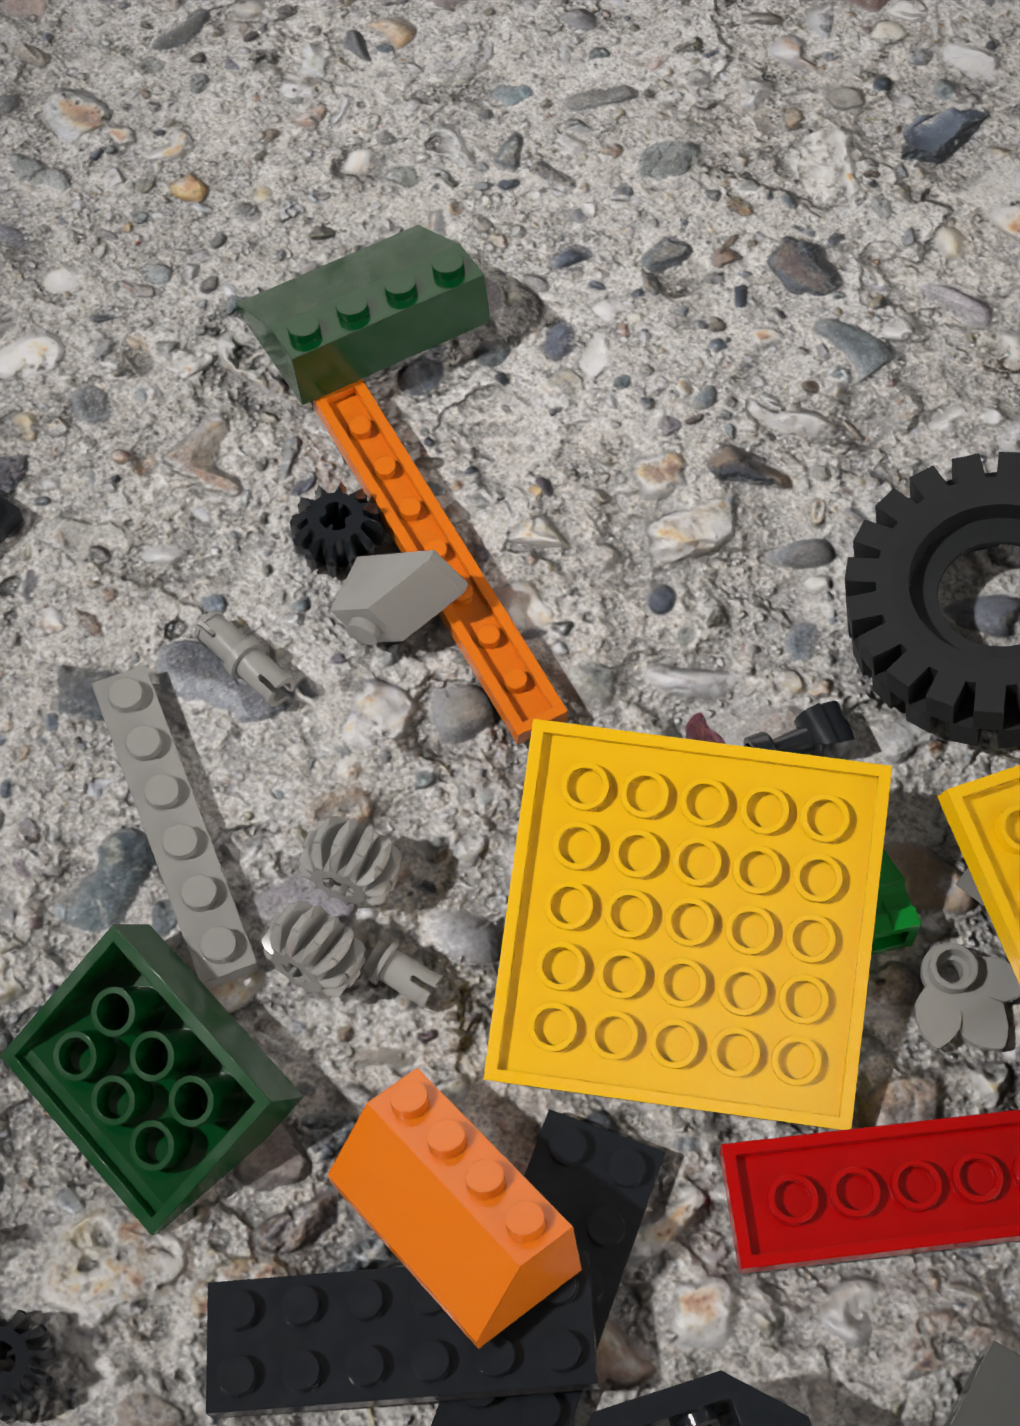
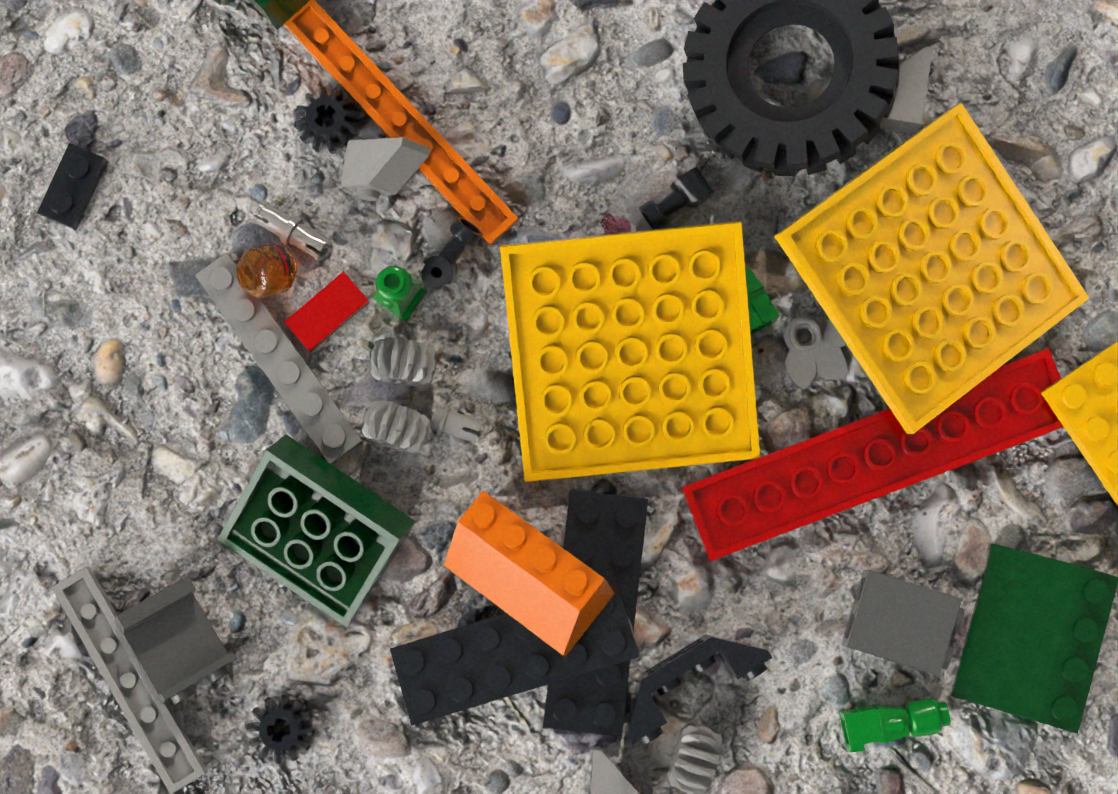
camera: 10 degrees left, 20 degrees up
(192, 696) = (266, 270): none -> clear orange head
(261, 776) = (326, 311): none -> red tile
(368, 763) = (398, 291): none -> green piece
(440, 750) = (441, 265): none -> black leg

